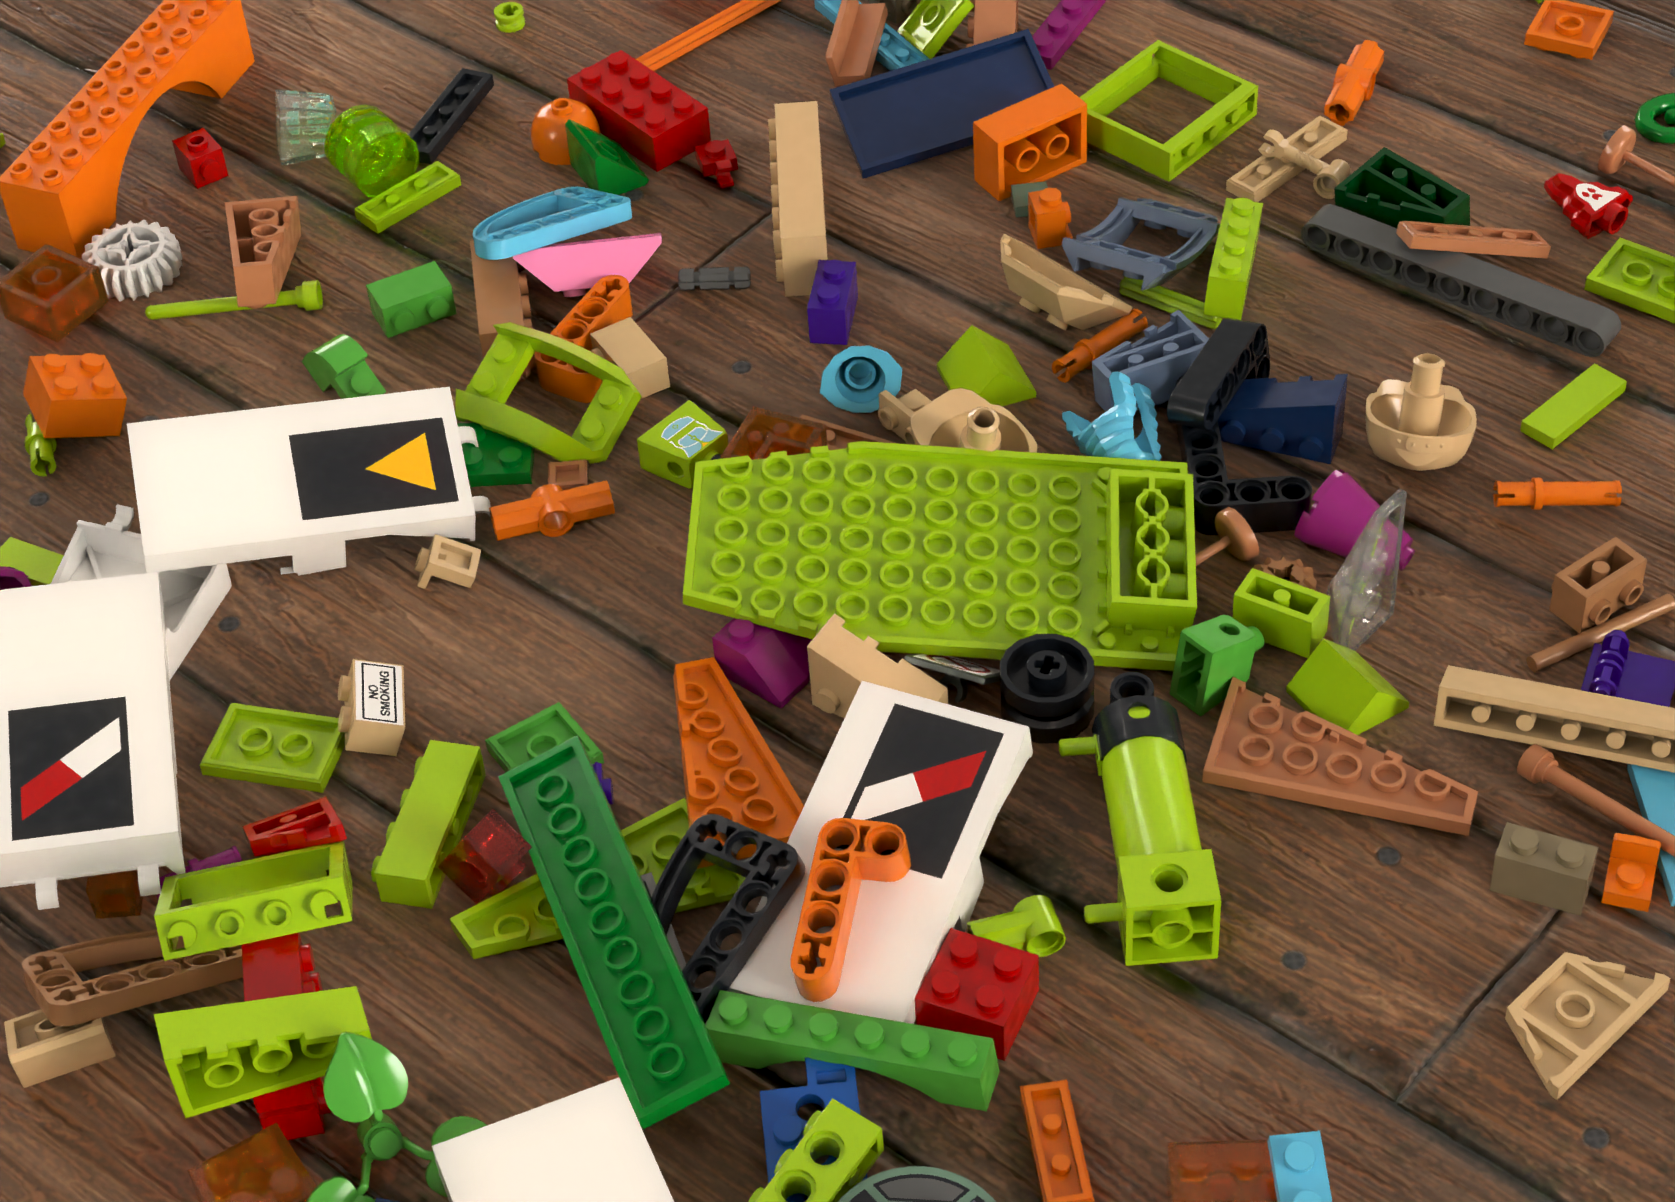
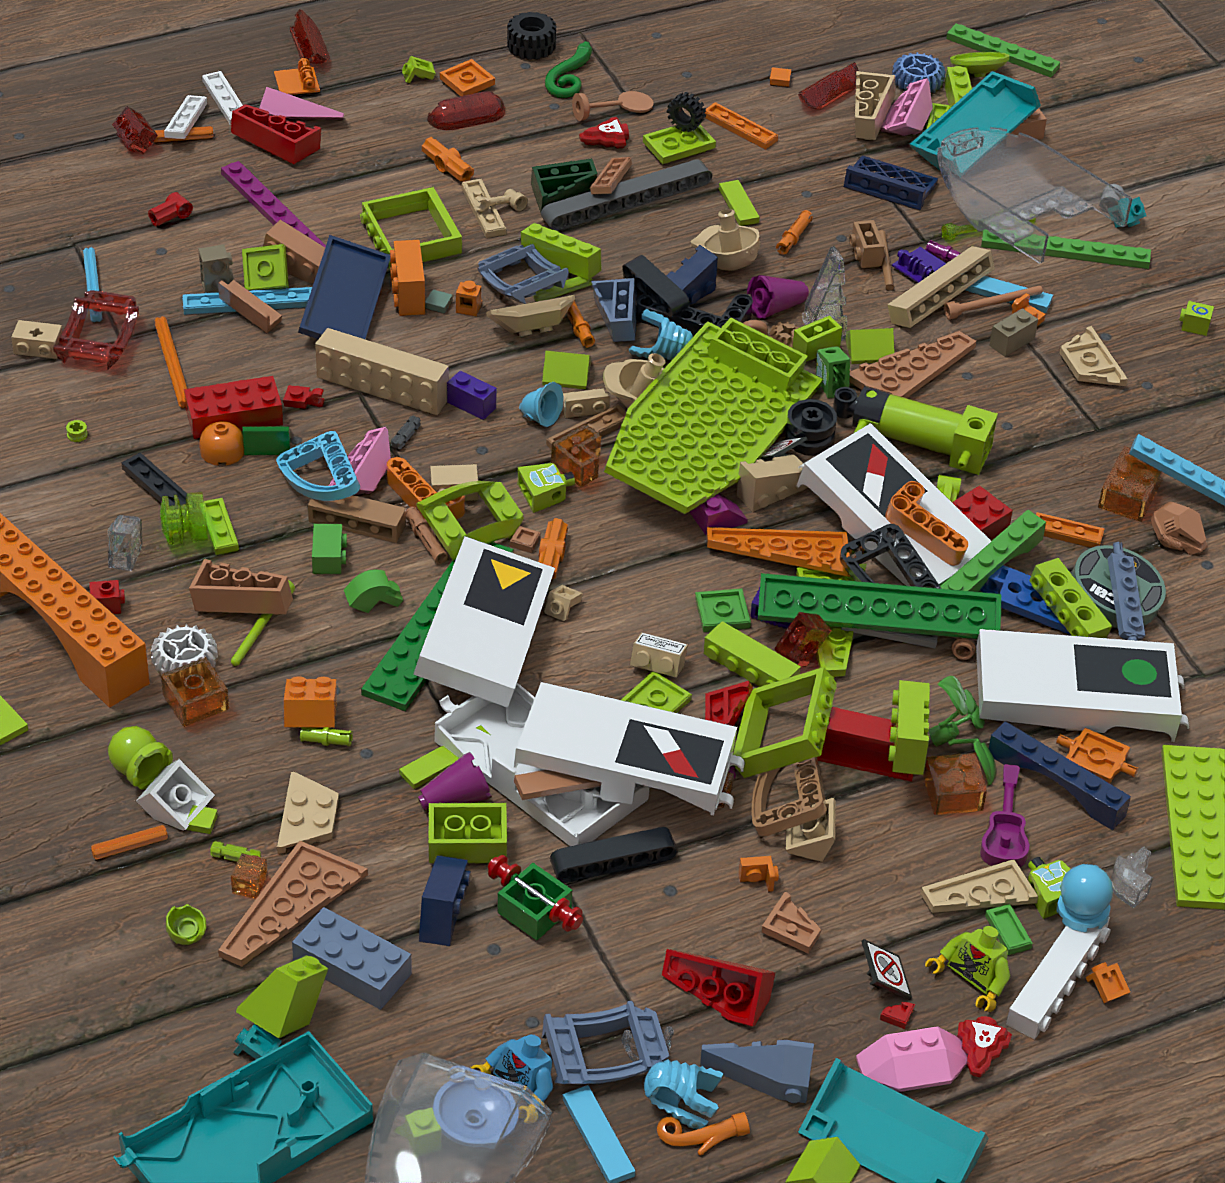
camera: 70 degrees left, 0 degrees up
(1495, 59) = (467, 111): none -> clear red brick

